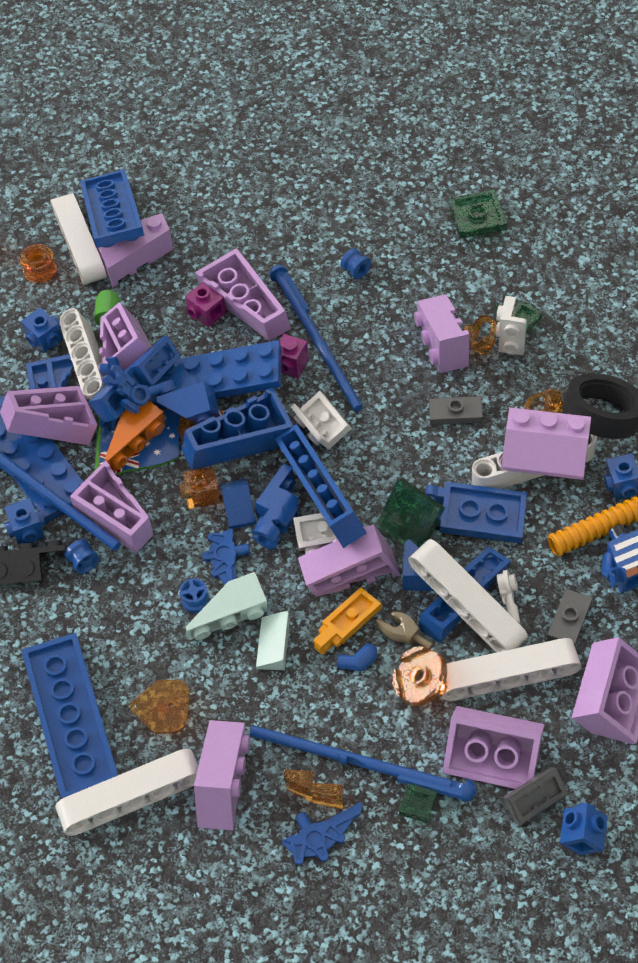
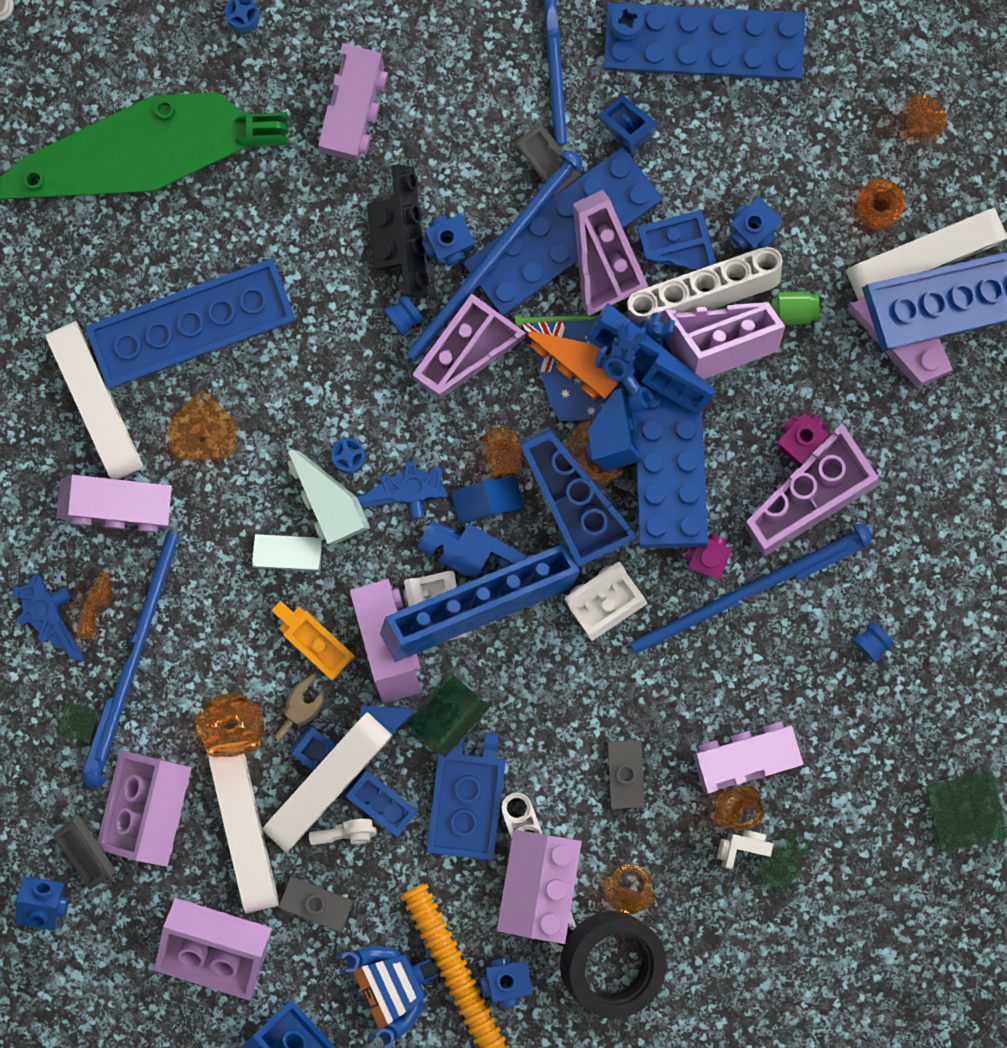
camera: 85 degrees right, 30 degrees up
(360, 660) = (260, 656): blue arm -> none

